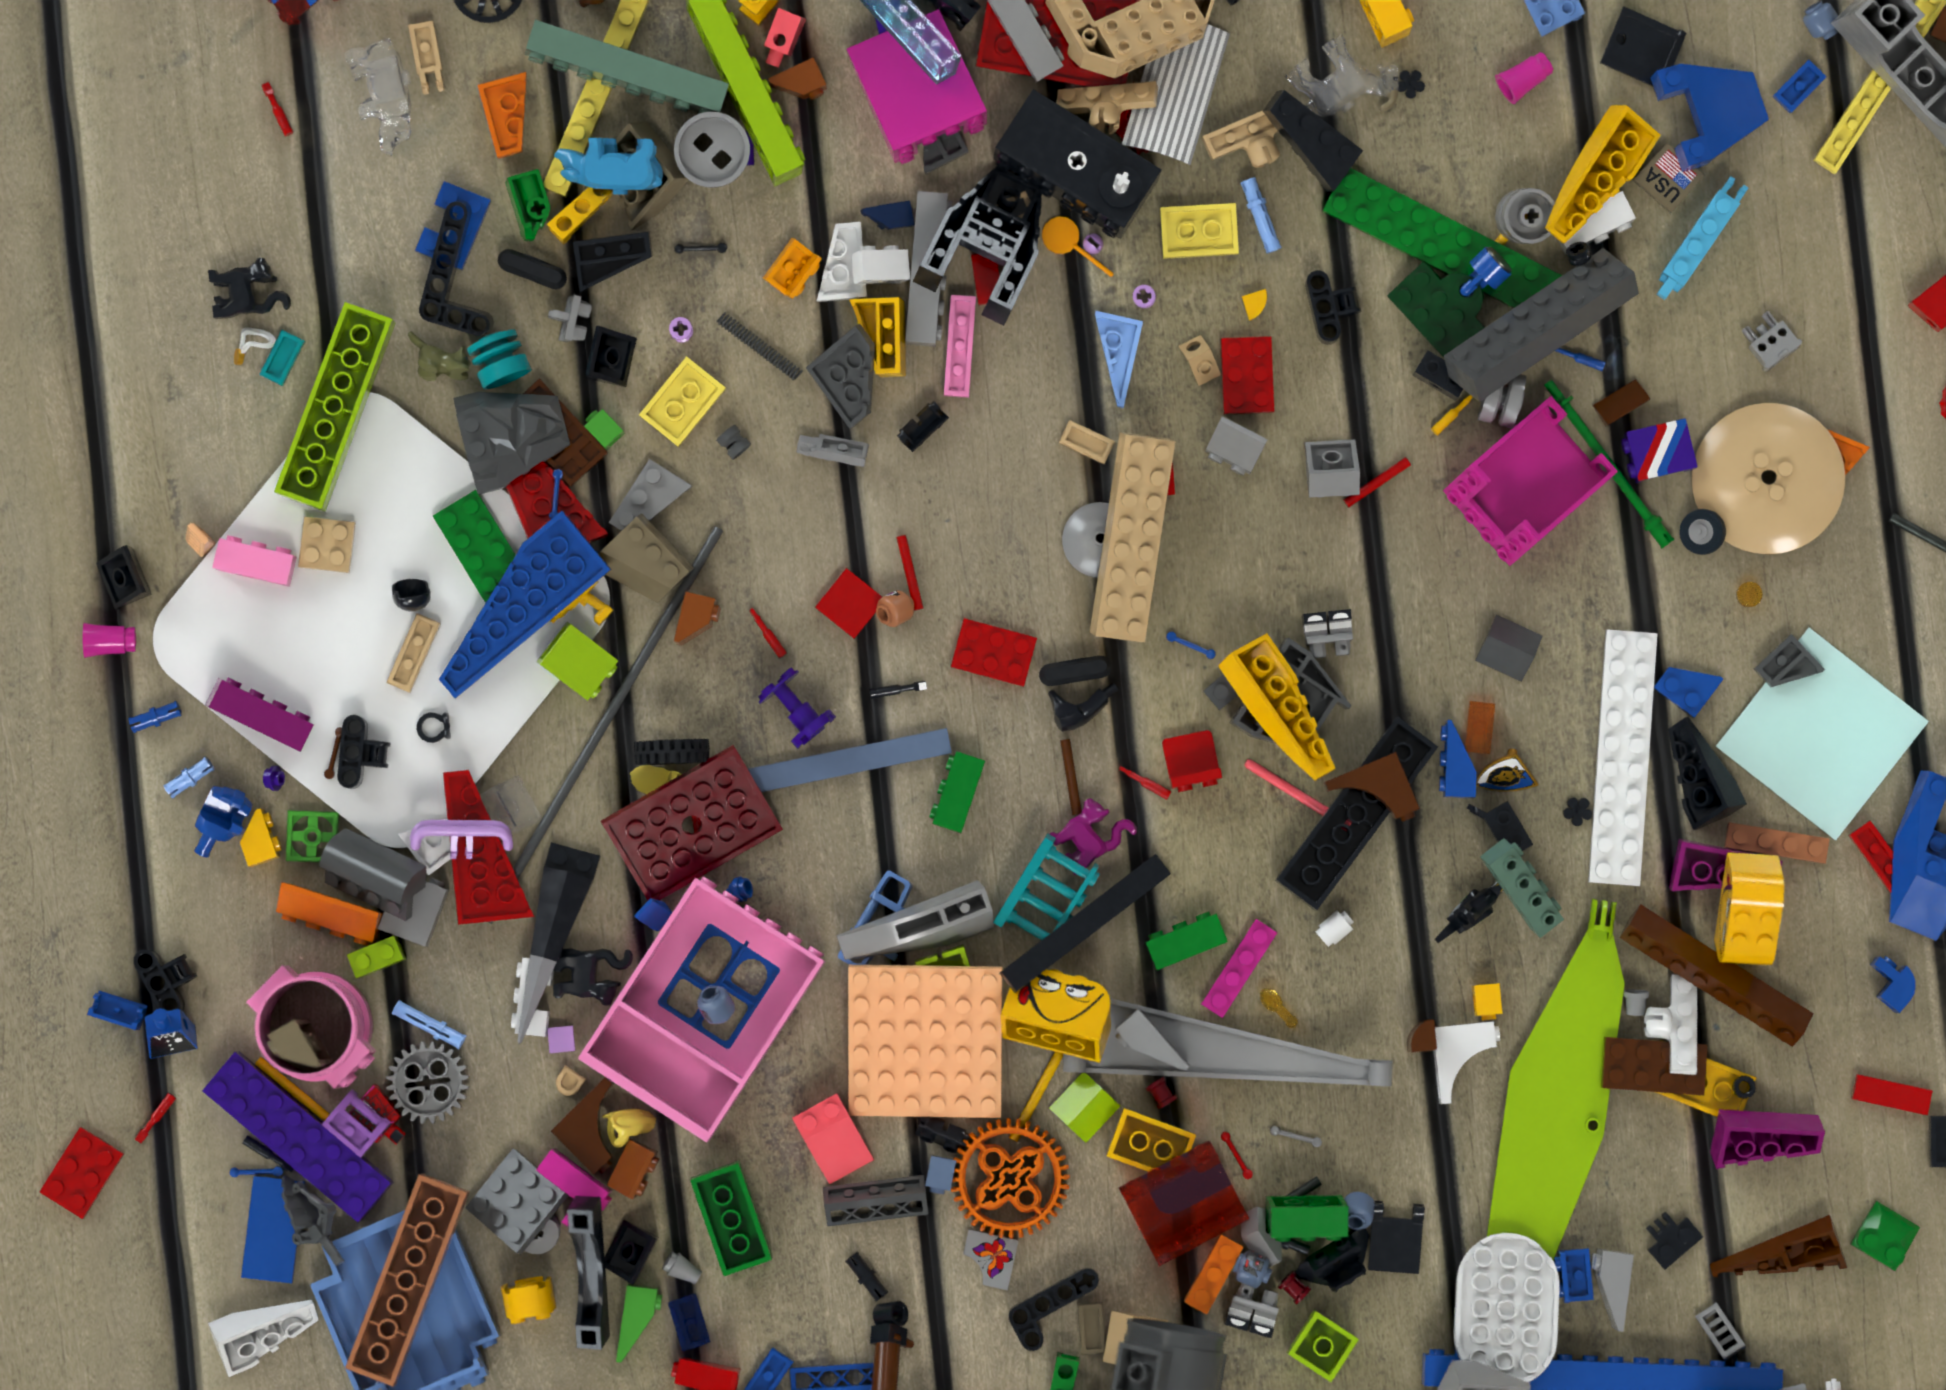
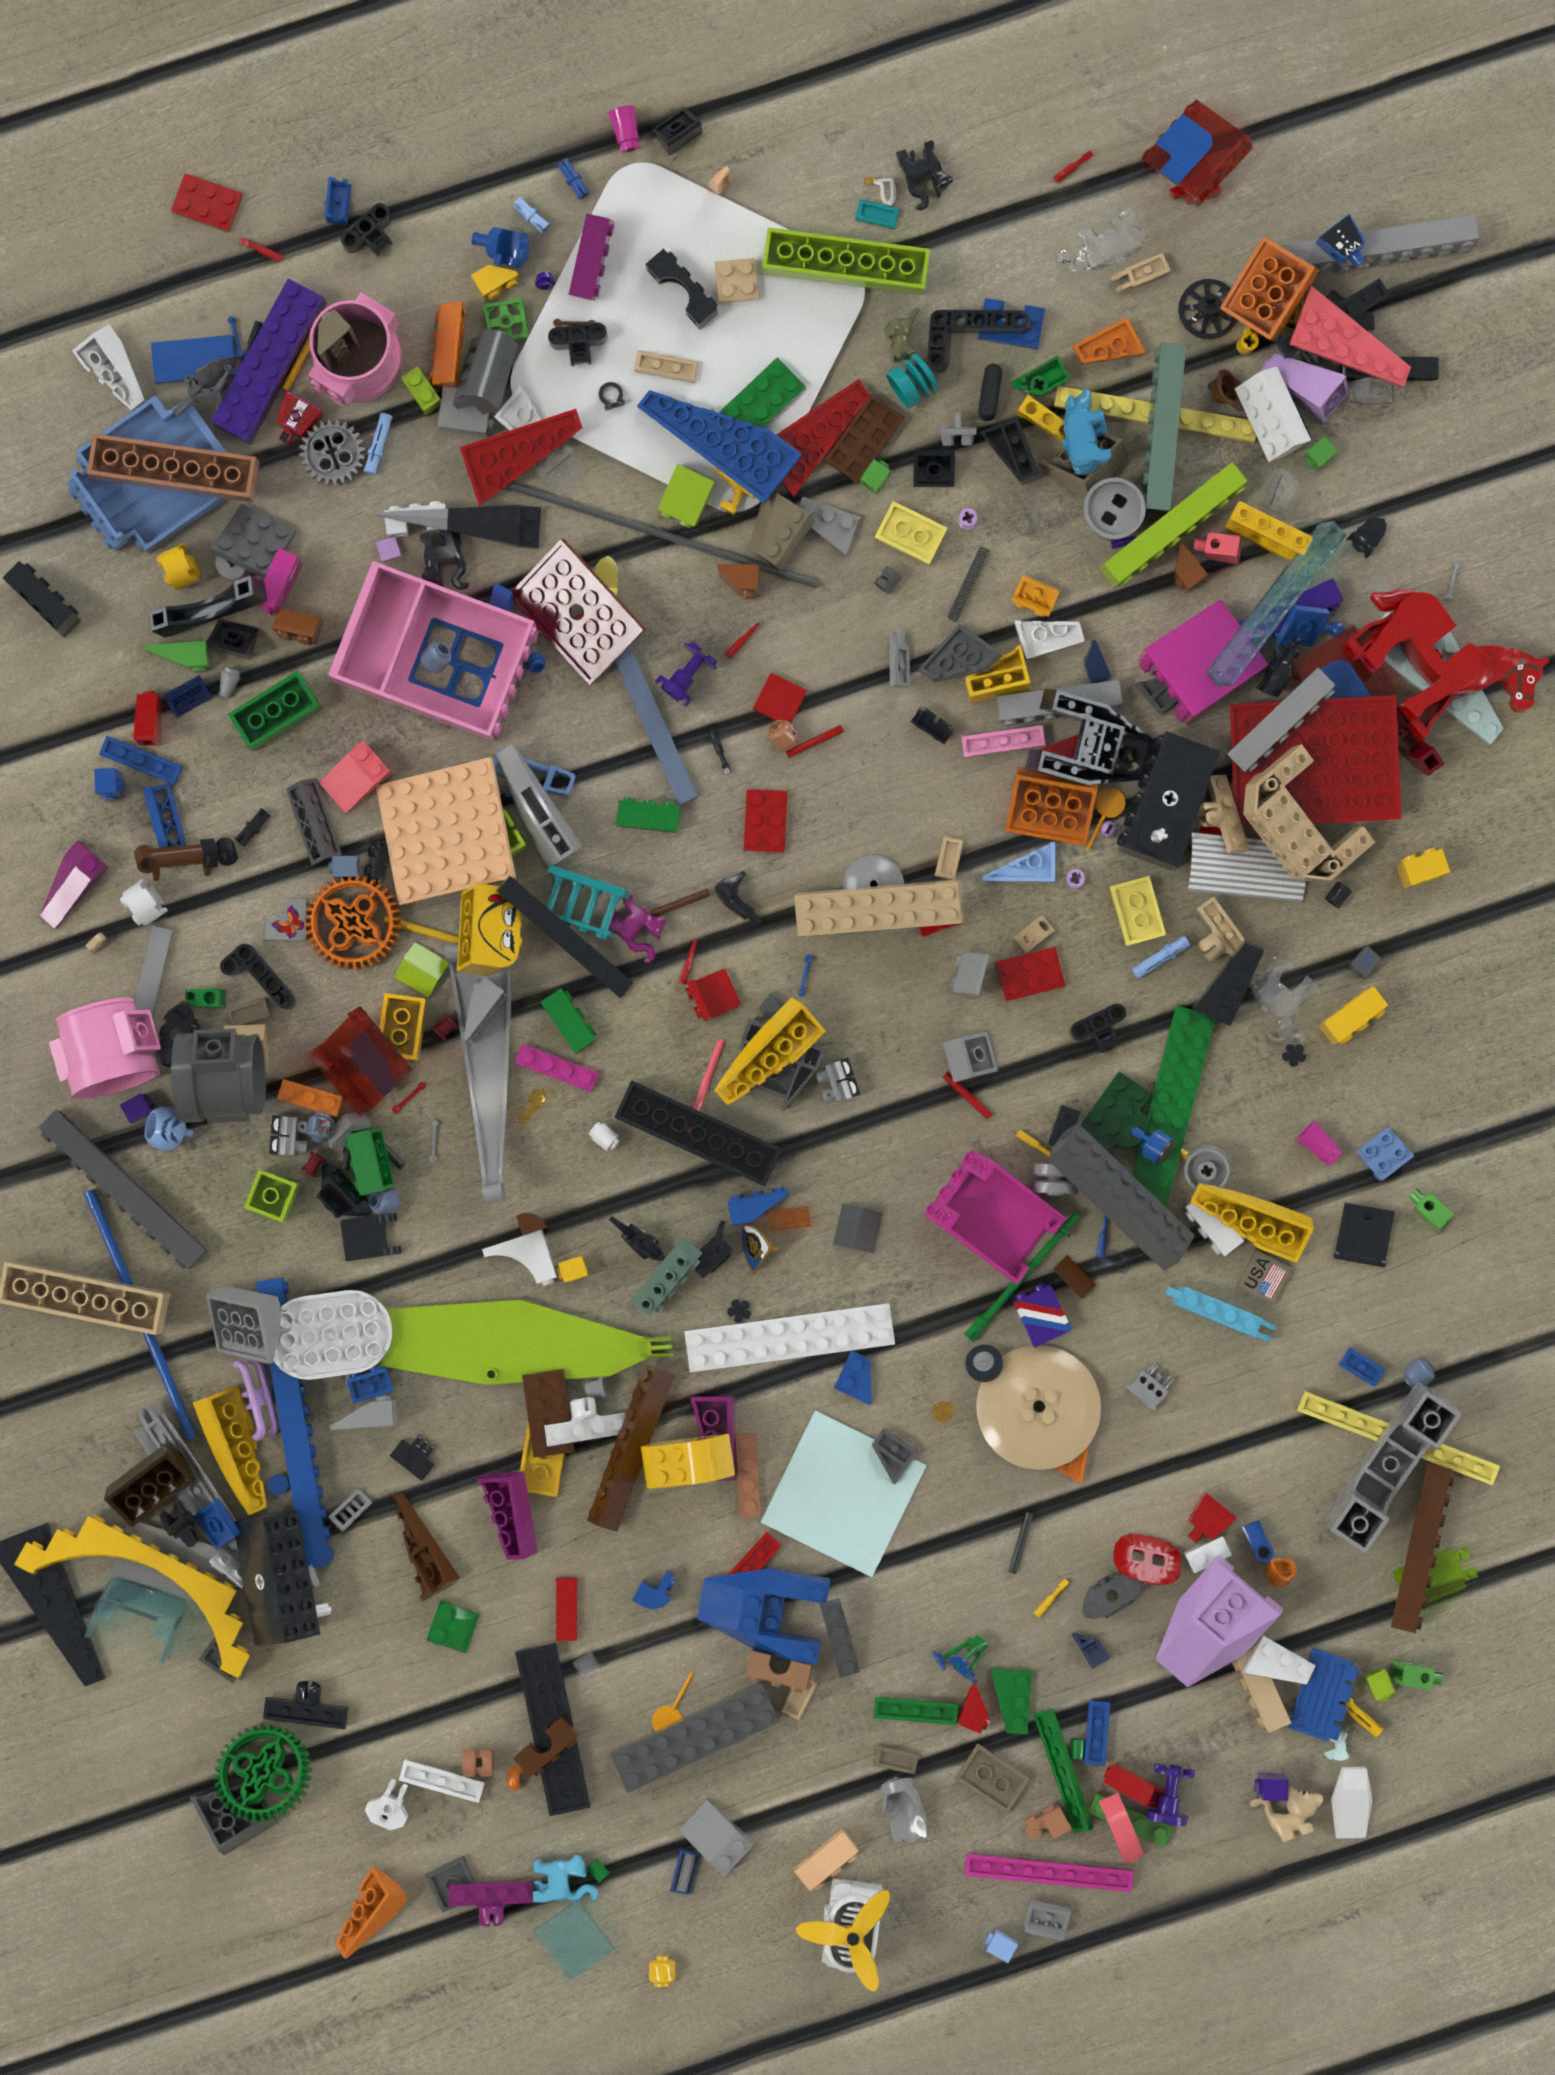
camera: 80 degrees right, 0 degrees up
(169, 1033) = (328, 244): blue torso -> none
(254, 561) = (711, 226): bright pink brick -> none
(294, 627) = (665, 269): none -> black arch
(352, 1131) = (282, 397): medium lavender plate -> none
(411, 594) = (711, 353): black hair -> none
(461, 828) = (534, 431): lavender piece -> none
(508, 434) = (853, 401): dark grey wedge -> none
(557, 475) = (831, 447): blue hinge -> none
(569, 1081) = (356, 563): tan tile -> none
(582, 1133) = (317, 581): reddish brown arch -> none
(628, 1123) = (333, 616): light yellow piece -> none
(671, 751) = (630, 582): black tyre -> none
(721, 248) = (1040, 538): black hinge -> none
(880, 266) = (1053, 664): white brick -> none
(1053, 307) = (1050, 807): none -> orange slope
(1075, 670) = (764, 887): black piece -> none
(1254, 303) = (1089, 968): yellow tile -> none
(1383, 780) = (727, 1148): reddish brown arch -> none
(1578, 253) = (1185, 1215): black bush -> none
(1705, 781) = (782, 1409): black wedge -> none
(1722, 104) = (1332, 1307): blue wedge -> none
(1750, 1081) = (550, 1482): black axle -> none

